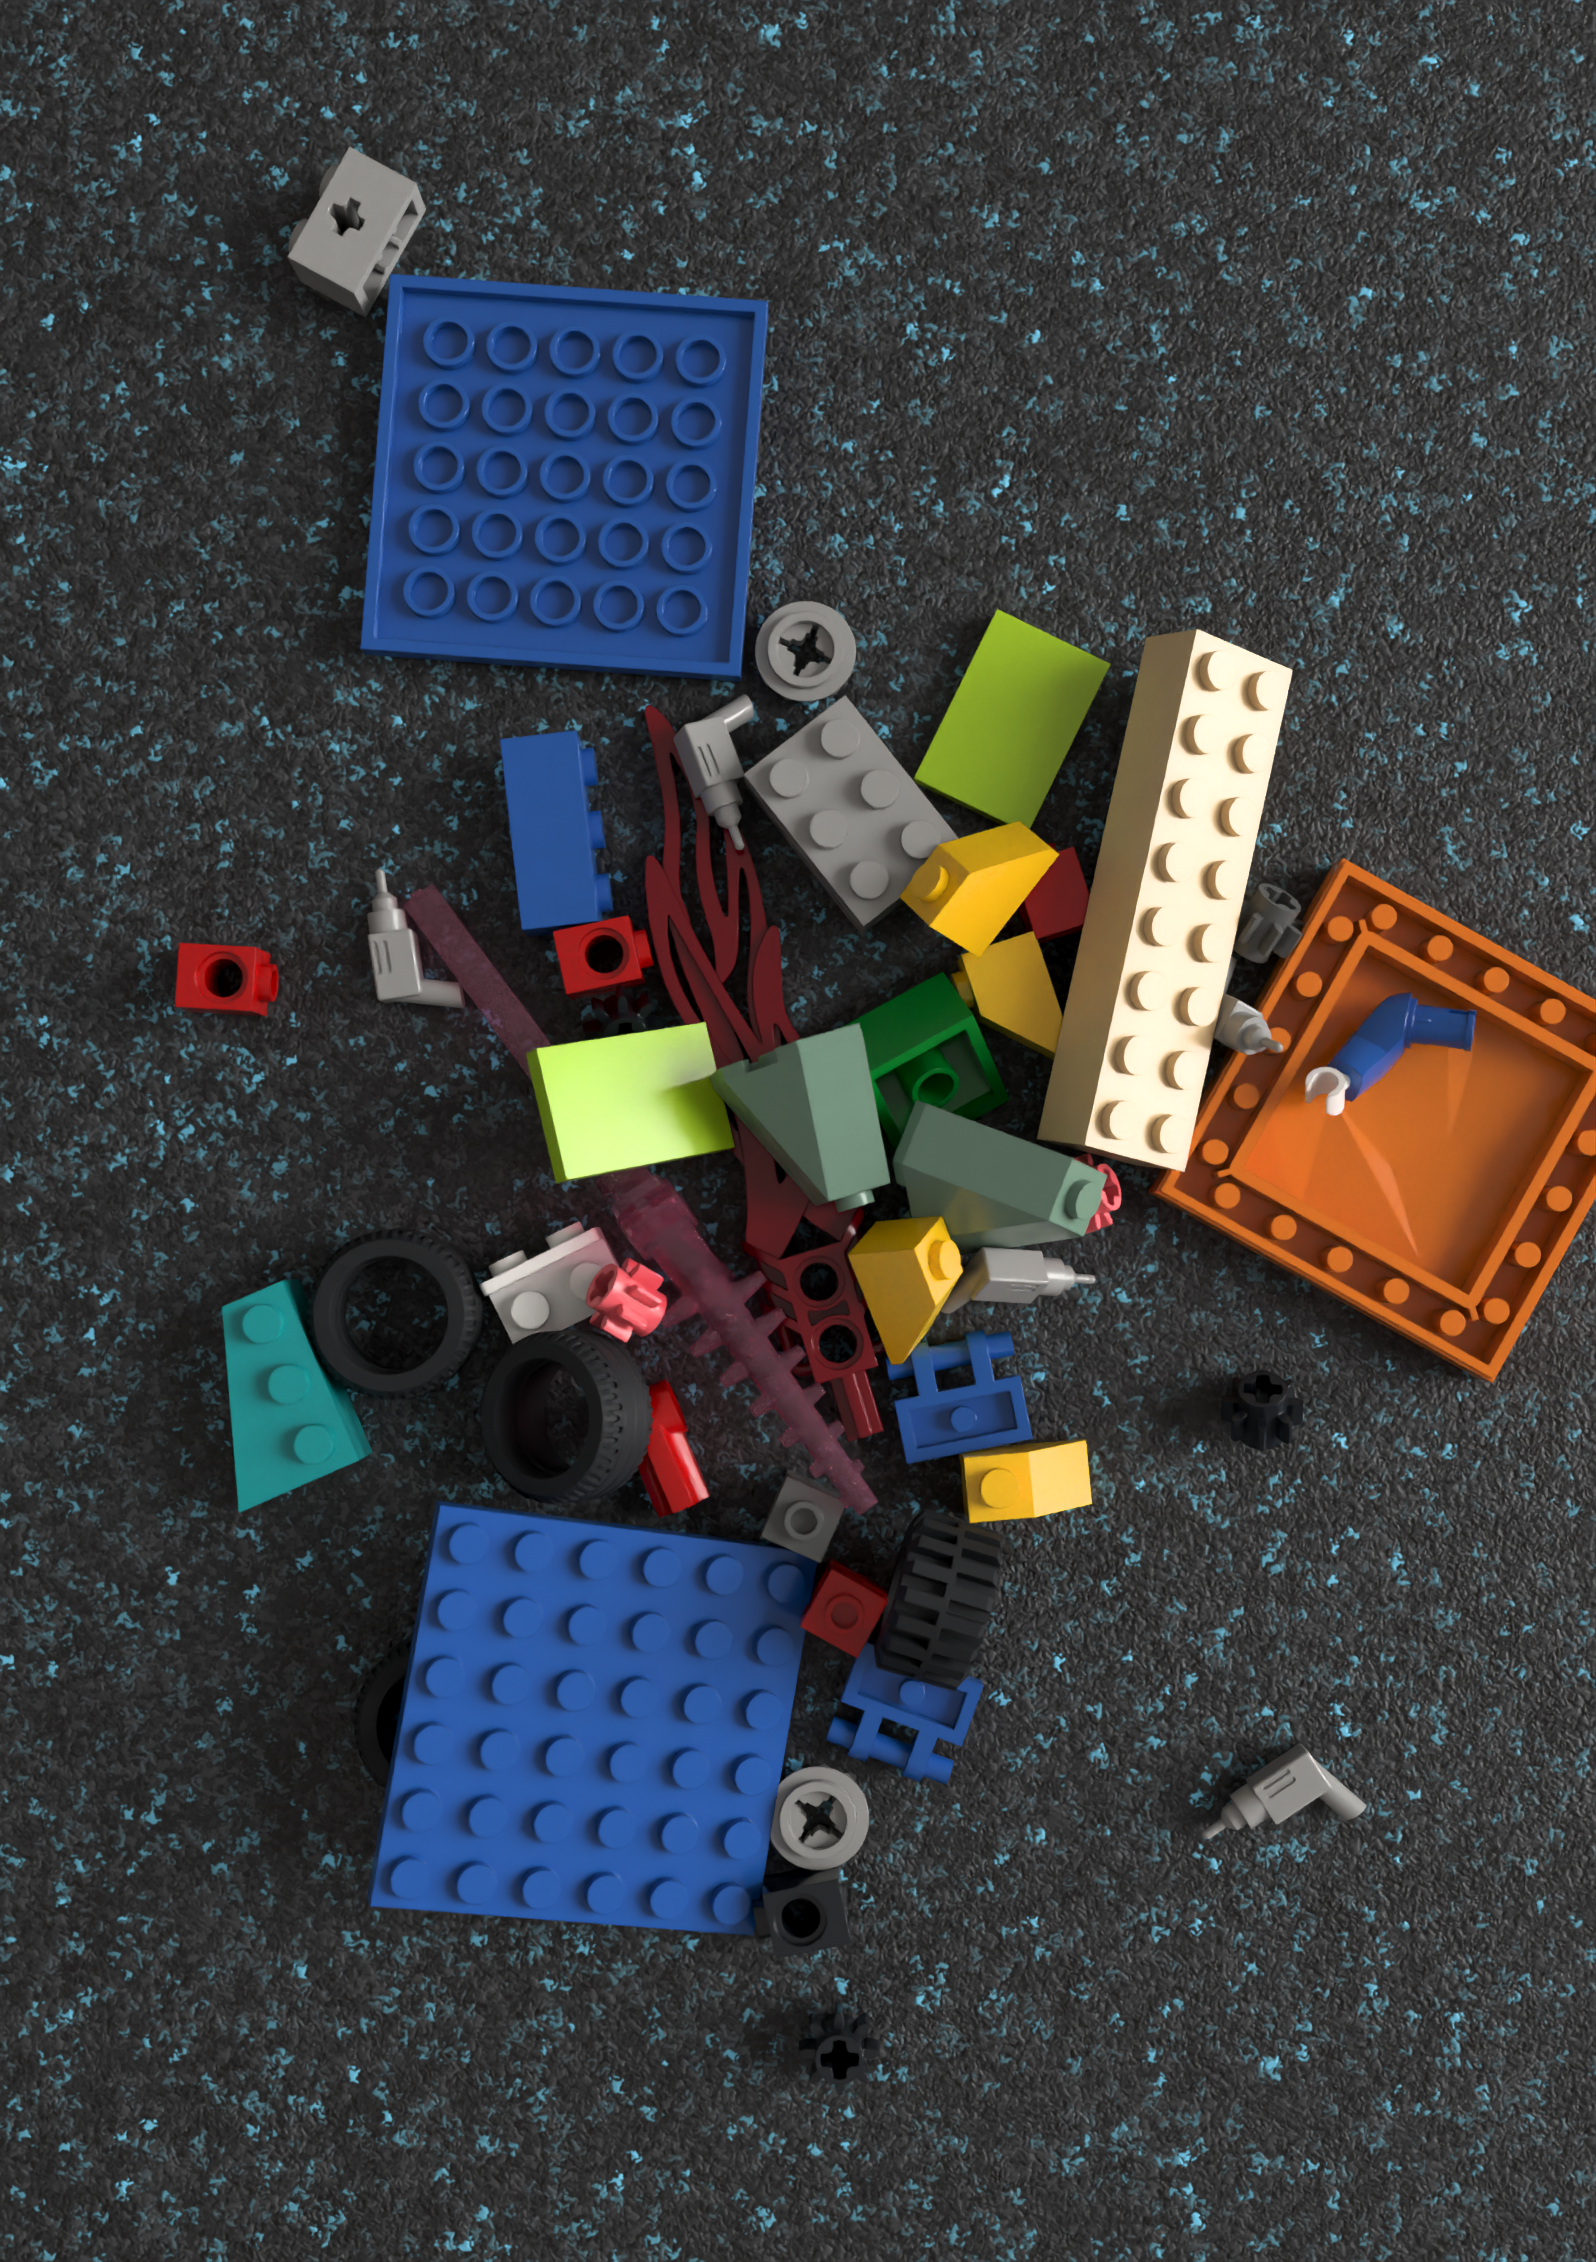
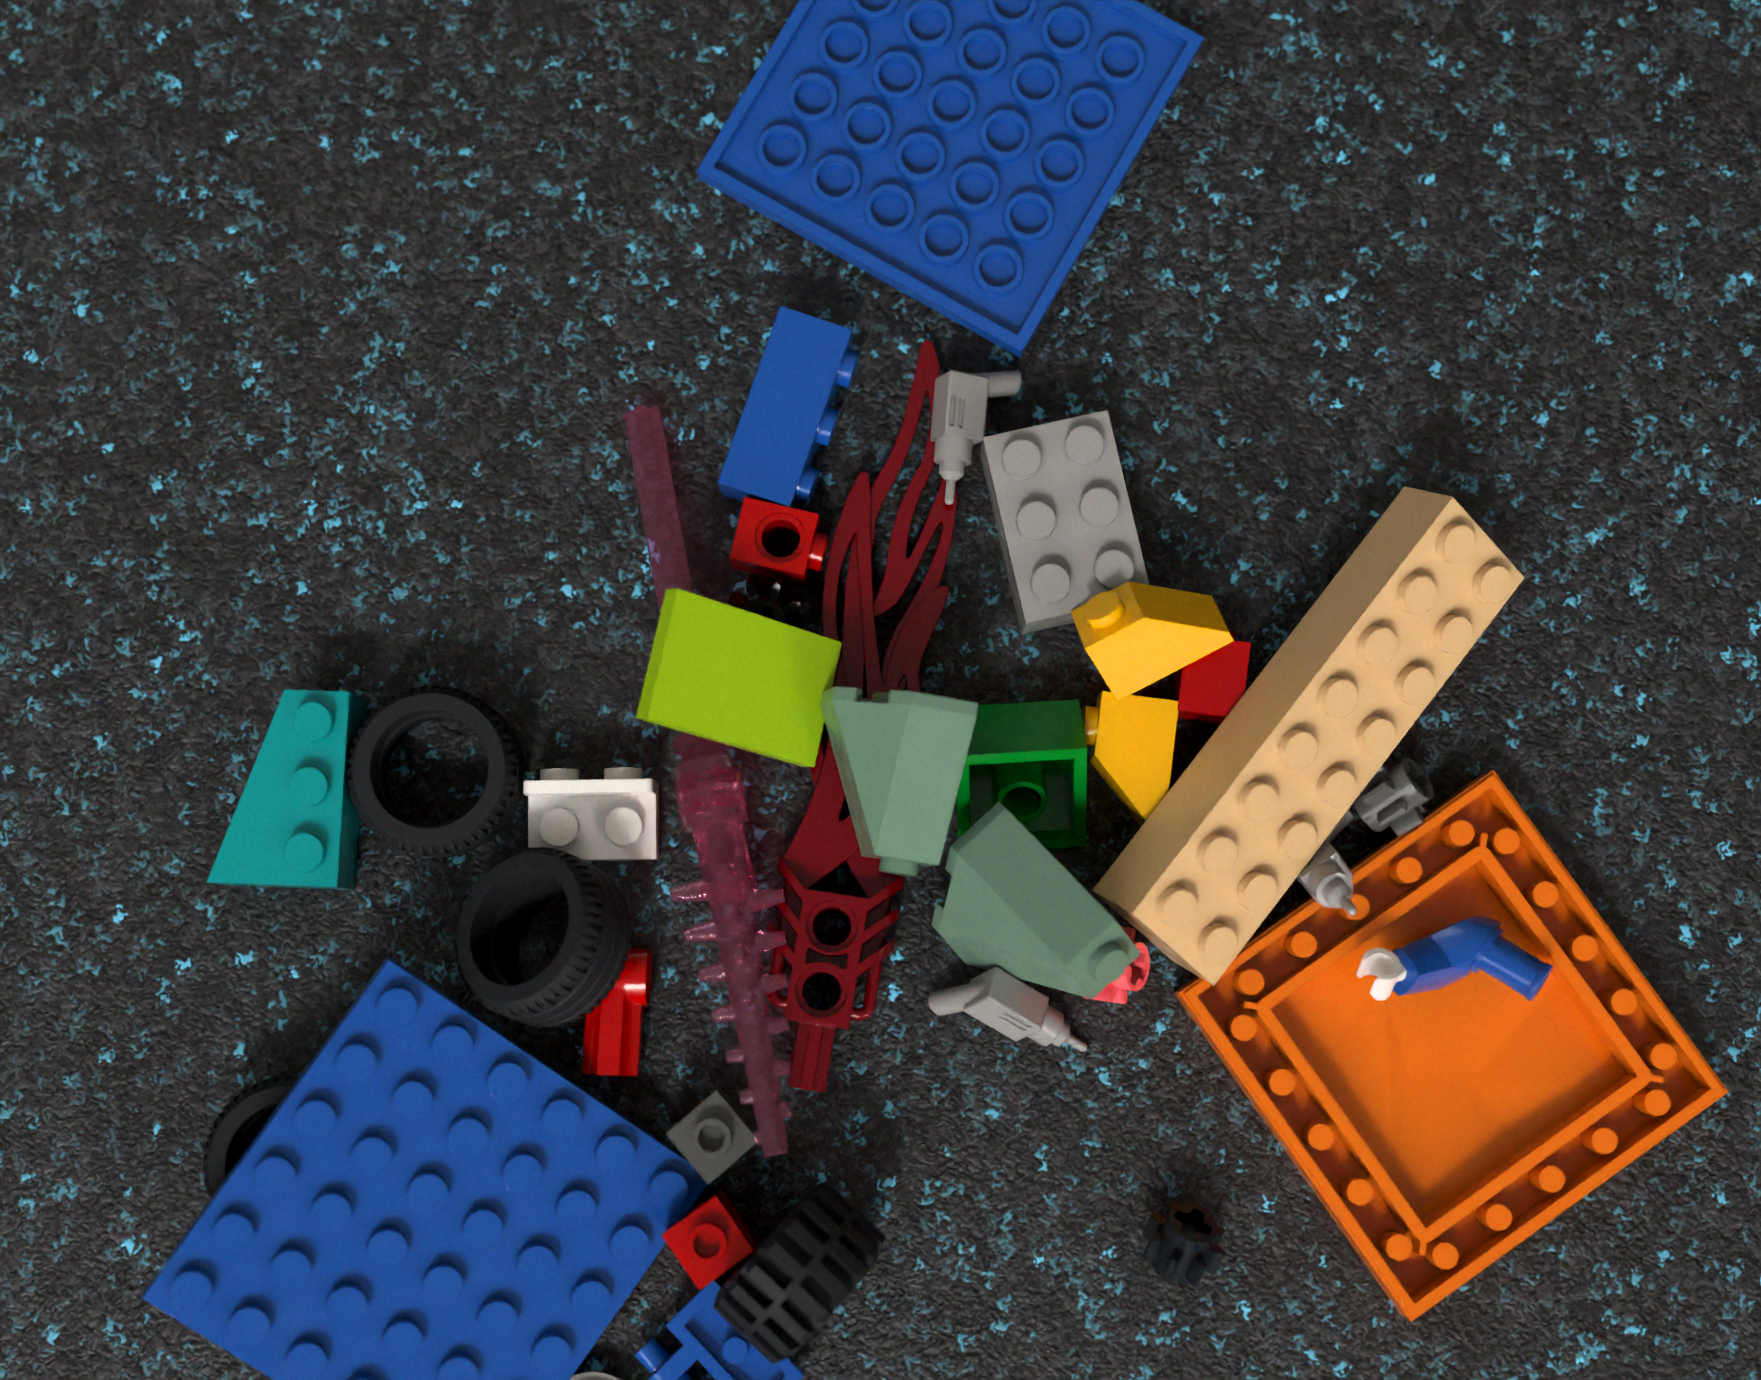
camera: 25 degrees right, 5 degrees down
(198, 975) = (418, 382): red brick -> none
(398, 958) = (596, 457): light grey piece -> none
(626, 1300) = (649, 858): coral gear -> none
(792, 626) = (1091, 330): light grey gear -> none
(905, 1278) = (912, 962): yellow slope -> none
(965, 1415) = (905, 1115): blue plate -> none
(1011, 721) = (1247, 507): lime tile -> none
(1024, 1480) = (934, 1202): yellow slope -> none

